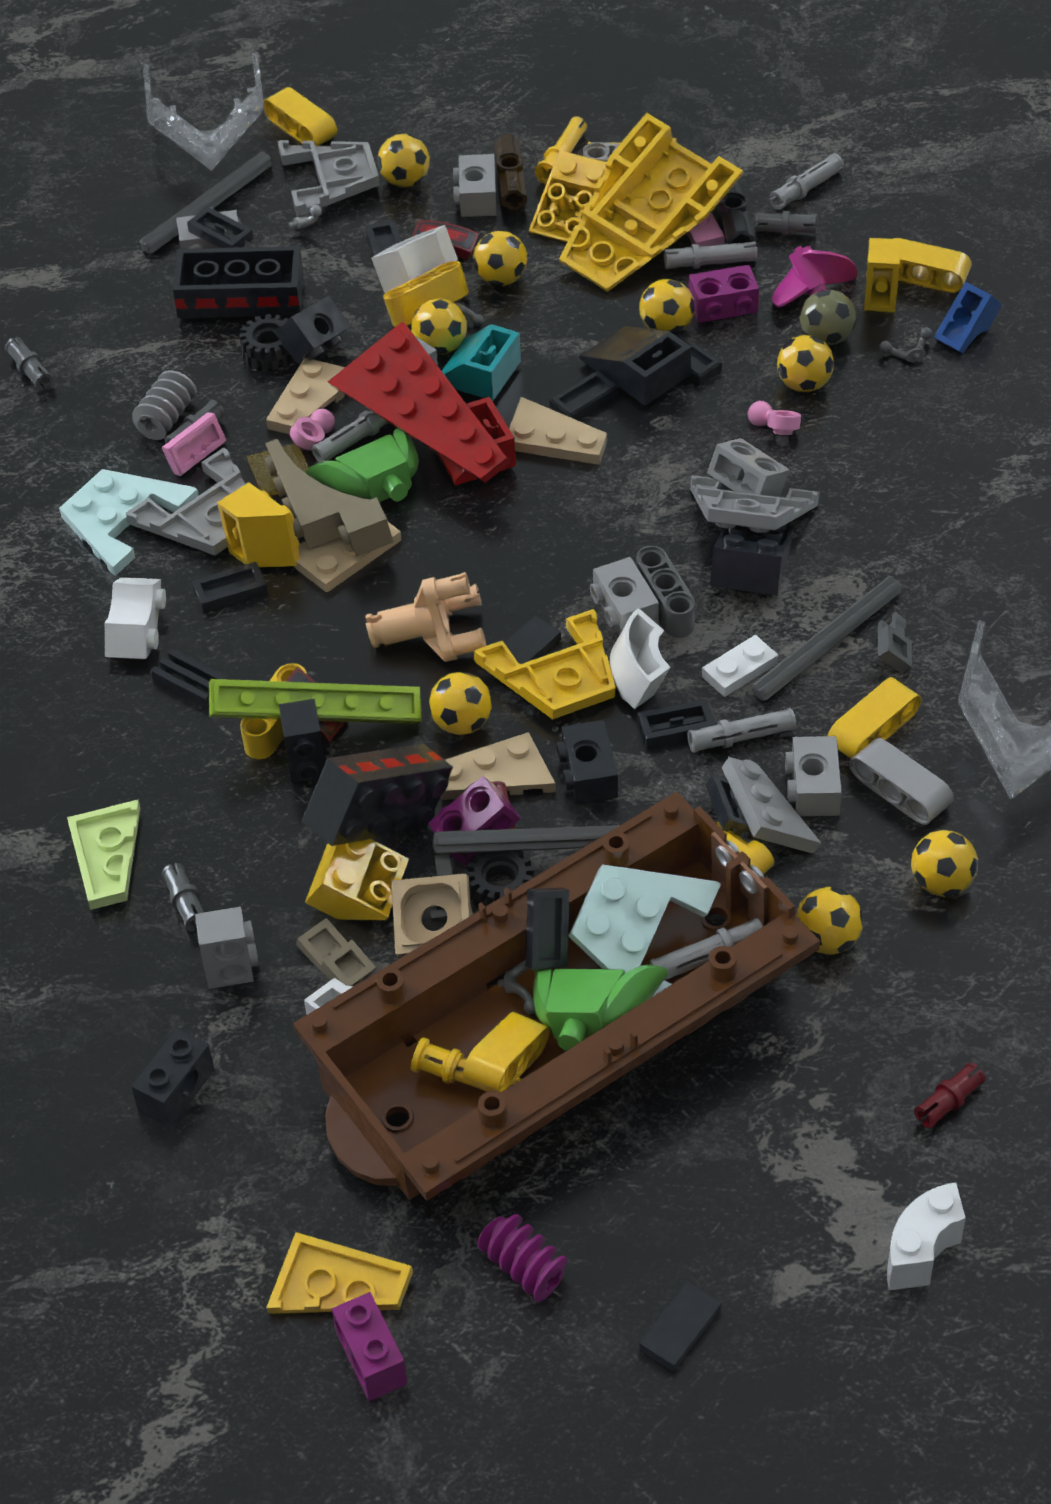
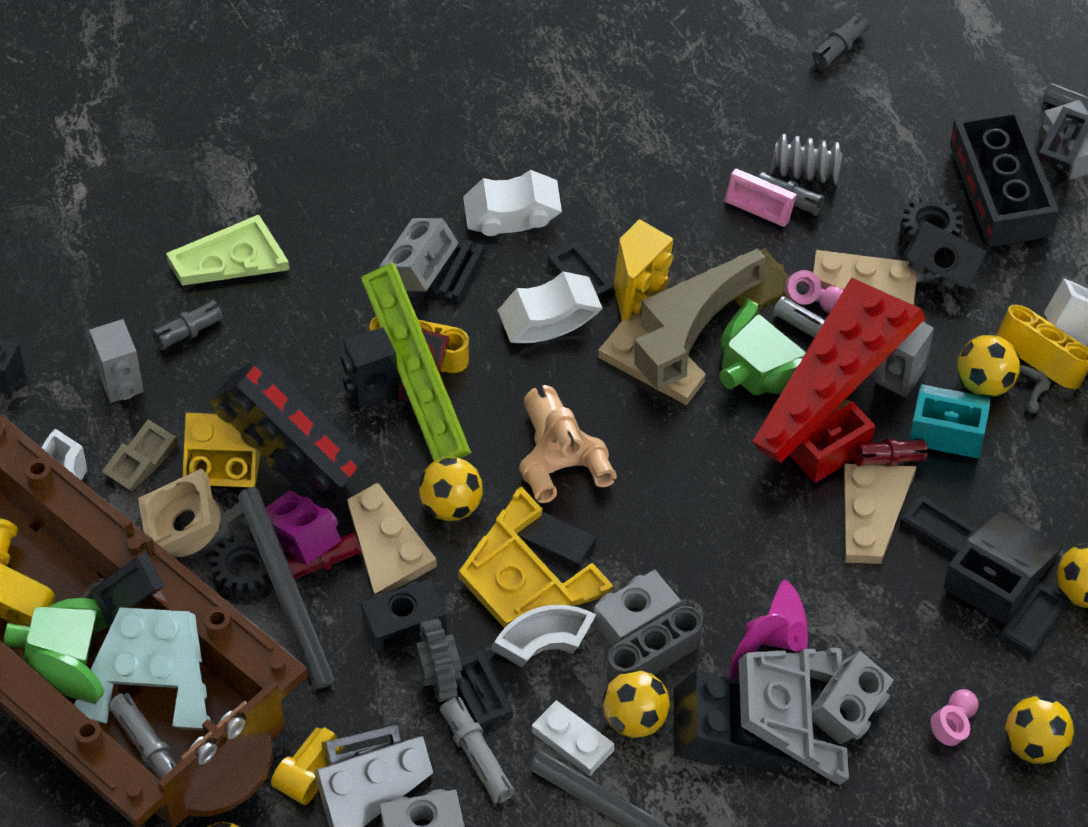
camera: 75 degrees right, 5 degrees up
(101, 506) = (662, 153): light aqua wing -> none
(171, 692) = (421, 252): none -> light grey brick
(198, 521) = (693, 243): light grey wing -> none
(270, 608) = (549, 309): none -> white brick
(508, 403) = (890, 452): none -> dark red pin
(654, 730) = (438, 660): none -> dark grey gear
(669, 512) = (782, 627): none -> dark pink piece
(726, 605) = (636, 704): none -> yellow piece

